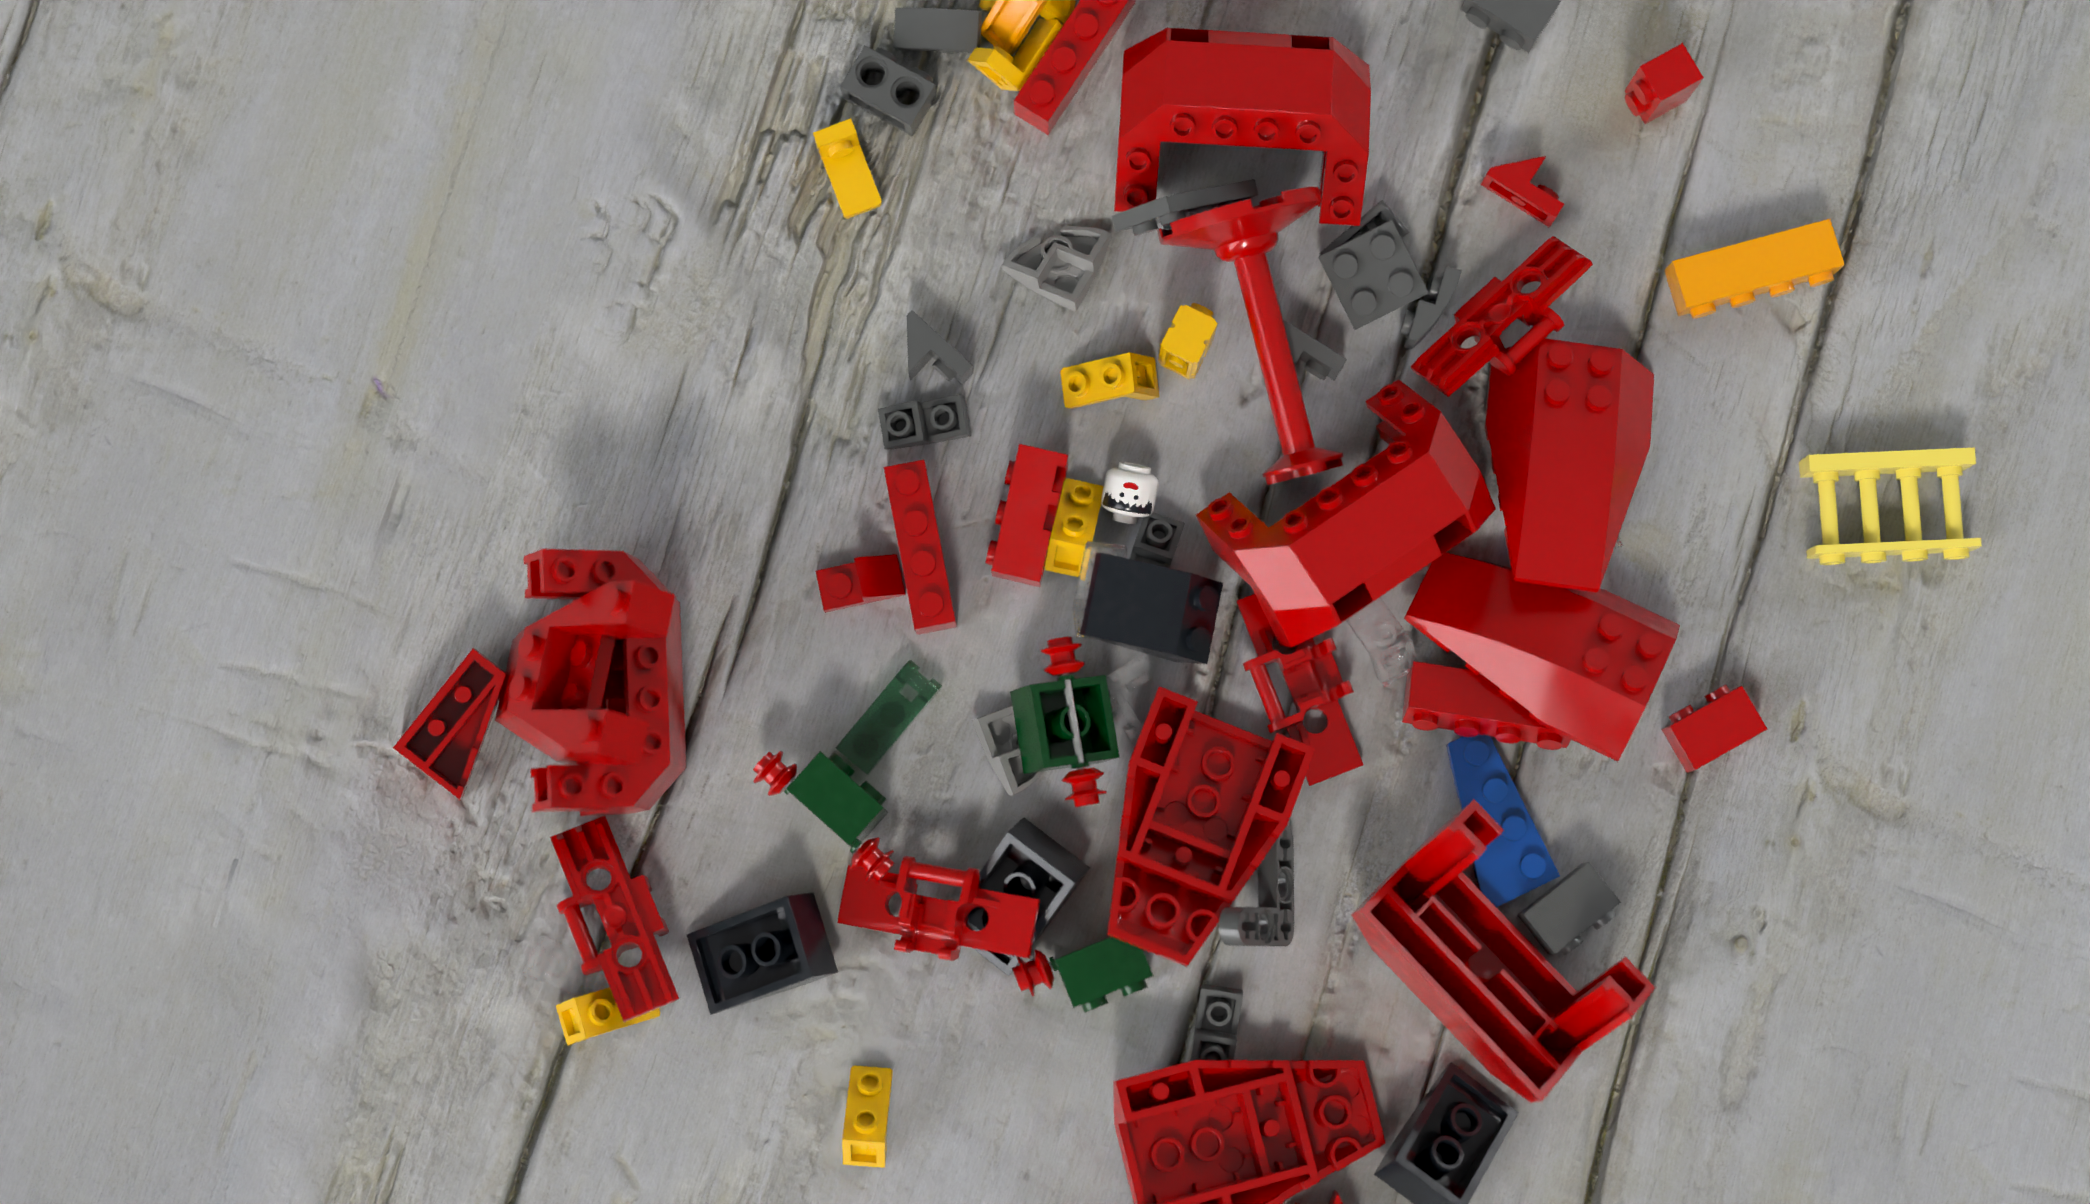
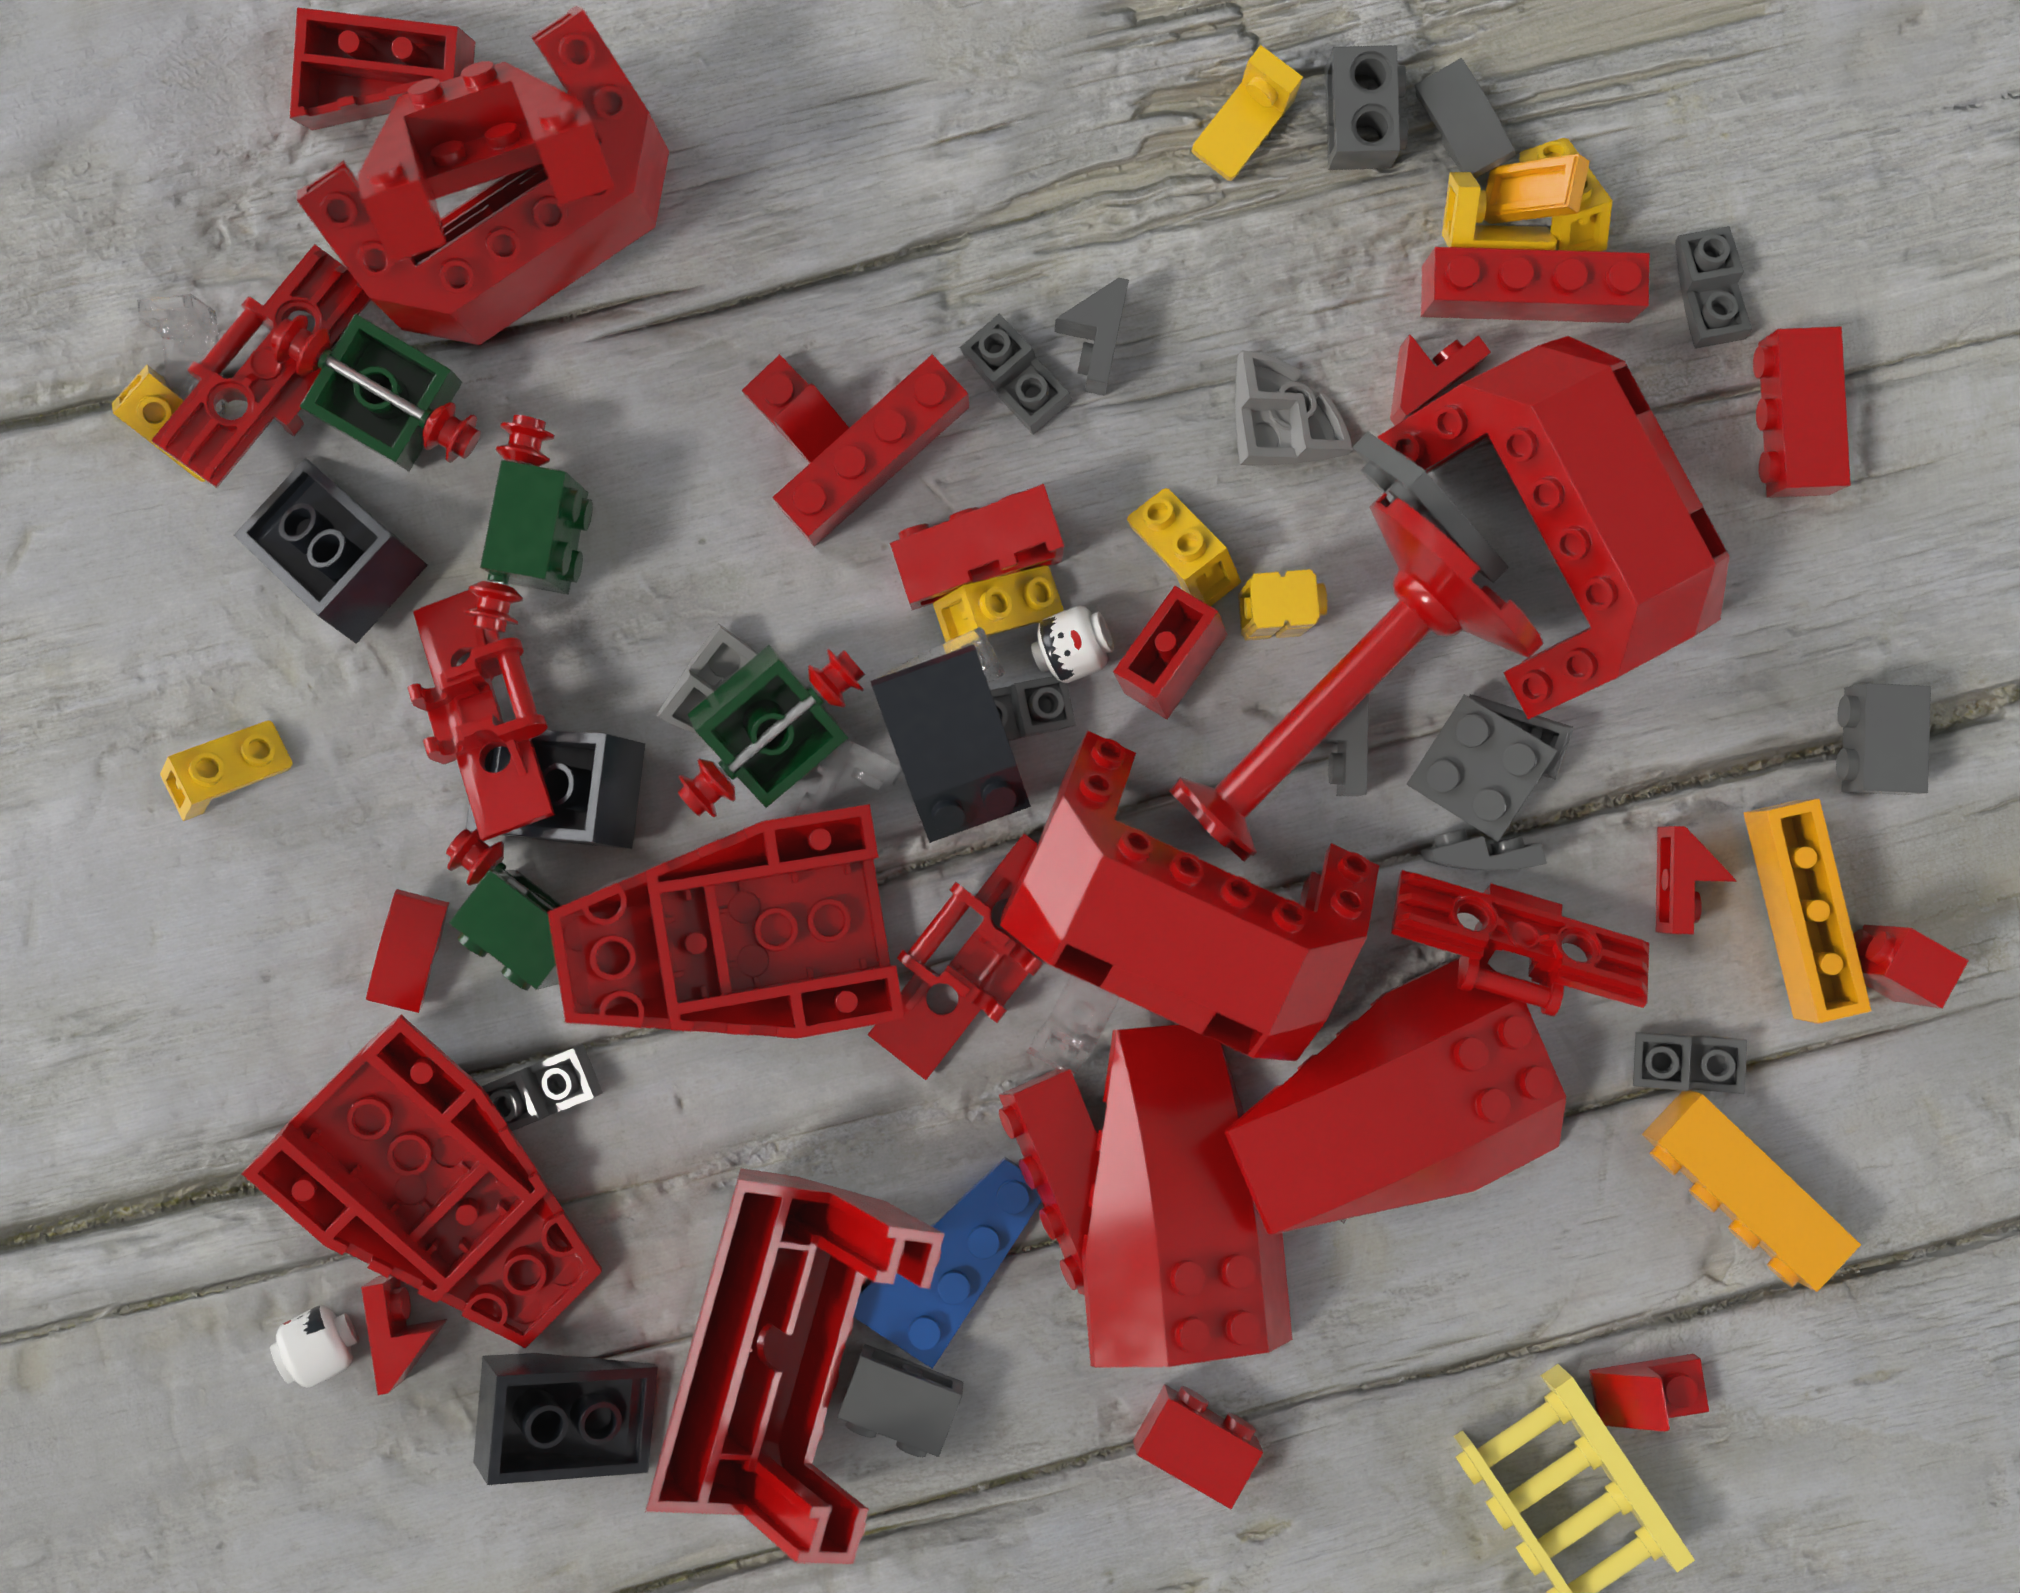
camera: 55 degrees right, 5 degrees up
(681, 850) = (378, 390): none -> dark green brick
(887, 718) = (664, 530): clear green plate -> none
(1068, 1062) = (407, 950): none -> red slope
(1092, 162) = (1421, 381): none -> red slope
(1175, 430) = (1170, 652): none -> red brick
(1274, 917) = (693, 1084): dark grey beam -> none
(1592, 122) = (1807, 911): none -> light orange brick
(1648, 257) = (1689, 1062): none -> dark grey slope
(1851, 412) = (1649, 1392): none -> red slope

